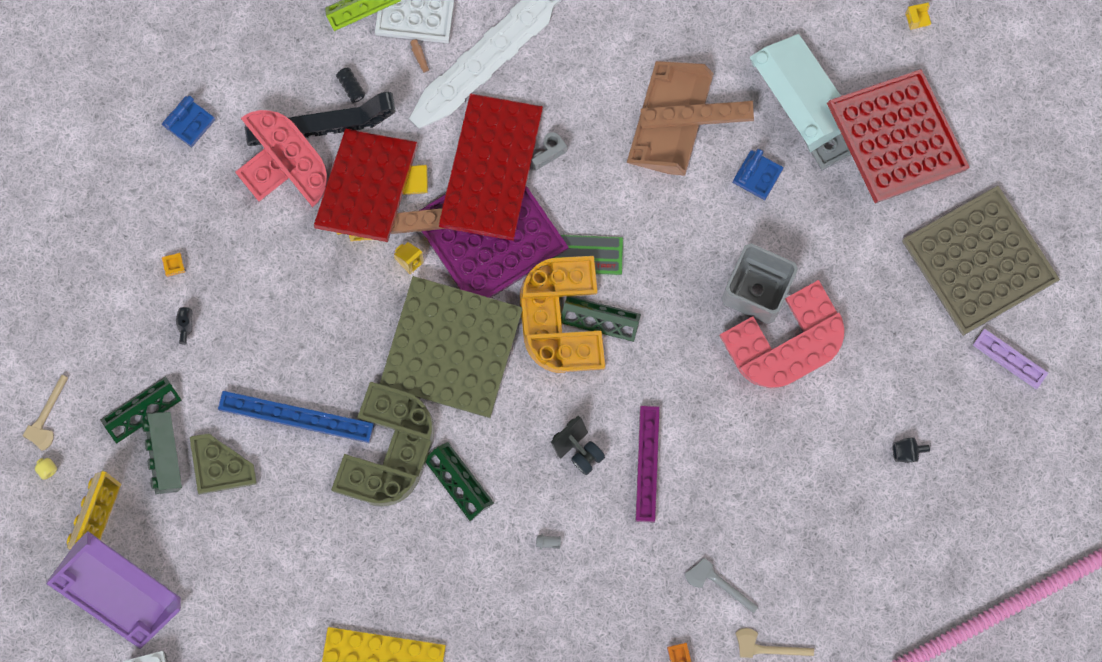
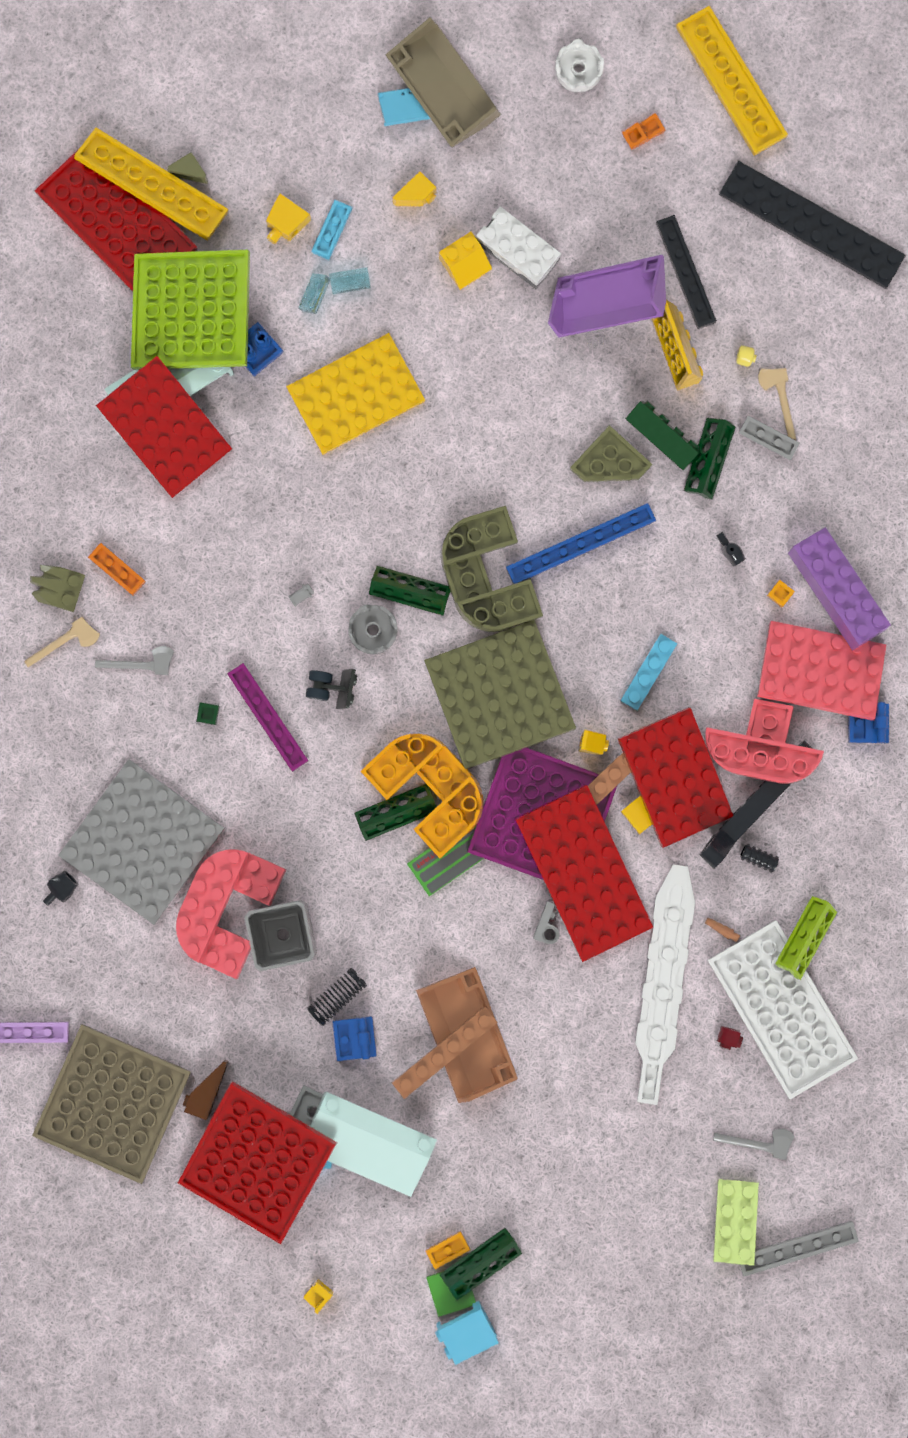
camera: 145 degrees right, 10 degrees up
(35, 574) = (686, 272): none -> black plate
(81, 390) = (769, 437): none -> light grey plate
(127, 232) = (839, 588): none -> medium lavender brick
(190, 184) = (821, 671): none -> coral plate
(322, 281) = (648, 672): none -> medium azure plate
(508, 457) = (372, 615): none -> light grey plate
(693, 501) = (208, 713): none -> dark green plate
(774, 208) = (322, 1020): none -> black piece
(818, 441) = (141, 841): none -> light grey plate
(904, 215) = (202, 1098): none -> reddish brown slope

